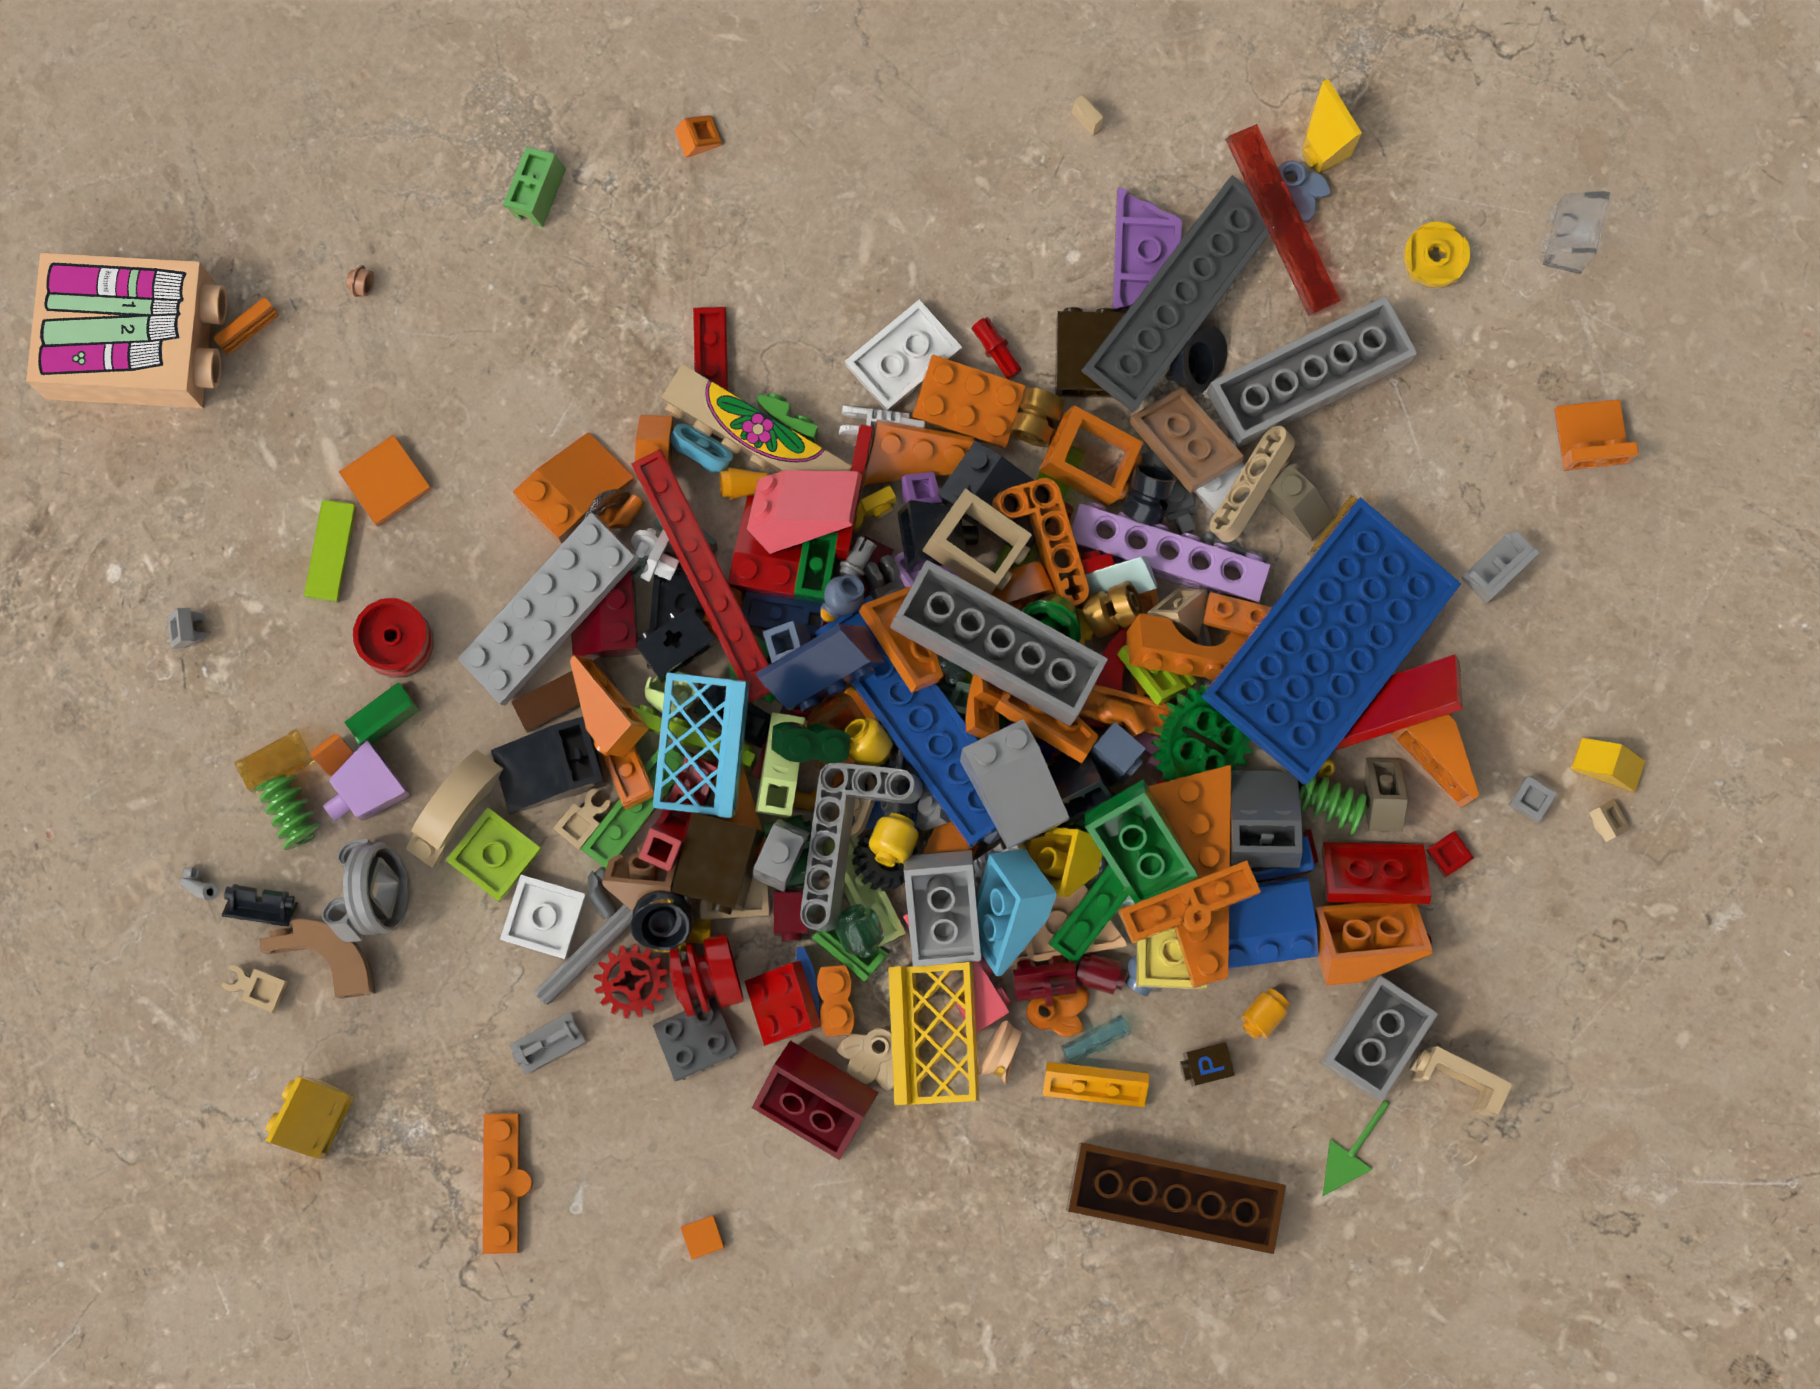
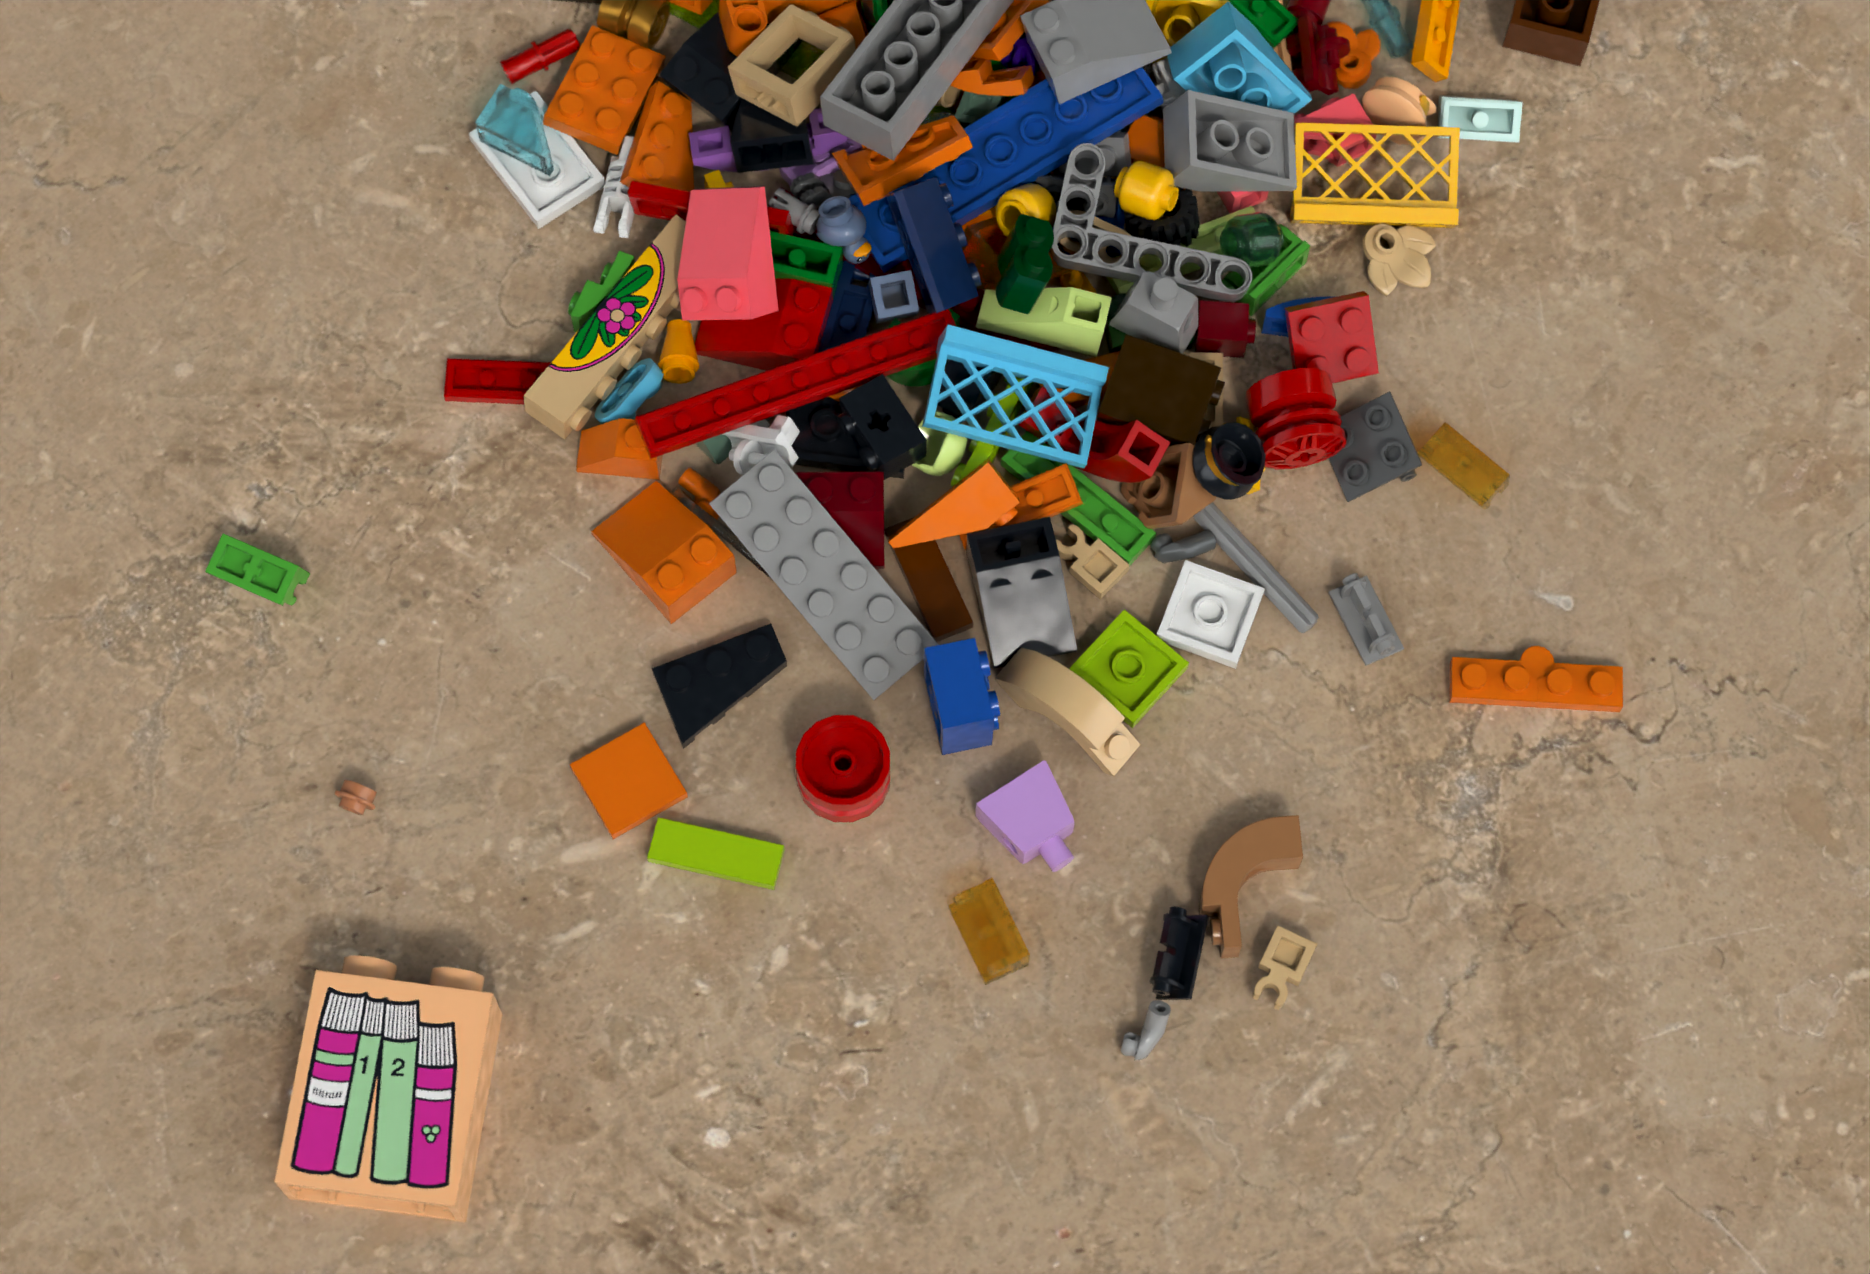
camera: 85 degrees left, 10 degrees down
(181, 628) = (804, 1040): light grey tile -> none
(245, 326) = (399, 942): orange tile -> none
(287, 811) = (1058, 909): bright green piece -> none
(309, 1117) = (1452, 895): yellow slope -> none
(332, 754) = (985, 858): orange slope -> none
(359, 910) = (1197, 795): light grey piece -> none
(382, 715) = (941, 796): green panel -> none
(453, 722) = (960, 696): none -> blue brick
(470, 538) = (716, 678): none -> black wing
(627, 966) = (1308, 502): red gear -> none
(680, 1117) = (1464, 465): none -> clear yellow hinge
(697, 135) = (215, 380): orange slope -> none
(702, 1237) = (1605, 457): orange tile -> none
(814, 1099) = (1447, 317): dark red slope -> none
(835, 991) = (1322, 277): orange brick -> none
(918, 334) = (515, 128): none -> clear light blue slope
(1009, 1124) = (1481, 117): none -> light aqua slope

